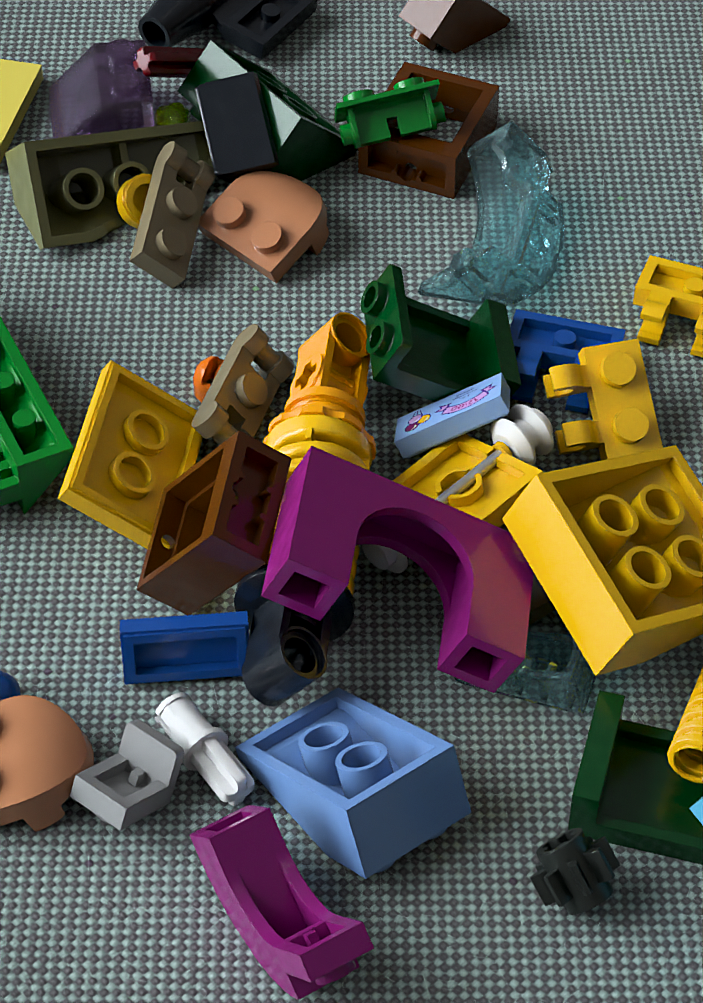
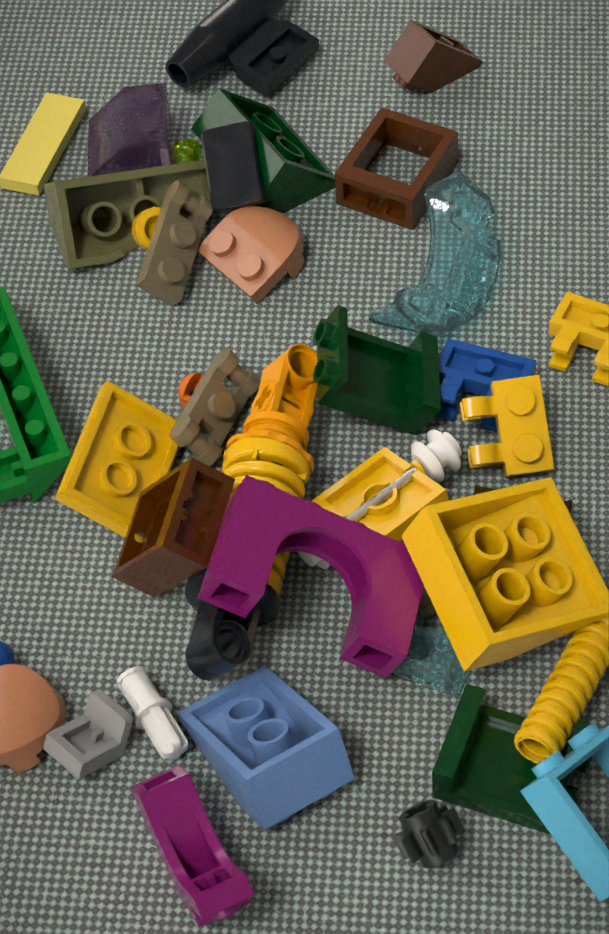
camera: 10 degrees right, 5 degrees up
(166, 61) = (185, 104): dark red axle -> none
(184, 647) = (143, 627): blue tile -> none
(369, 112) = (375, 151): green hinge -> none
(452, 416) = (381, 435): light blue tile -> none

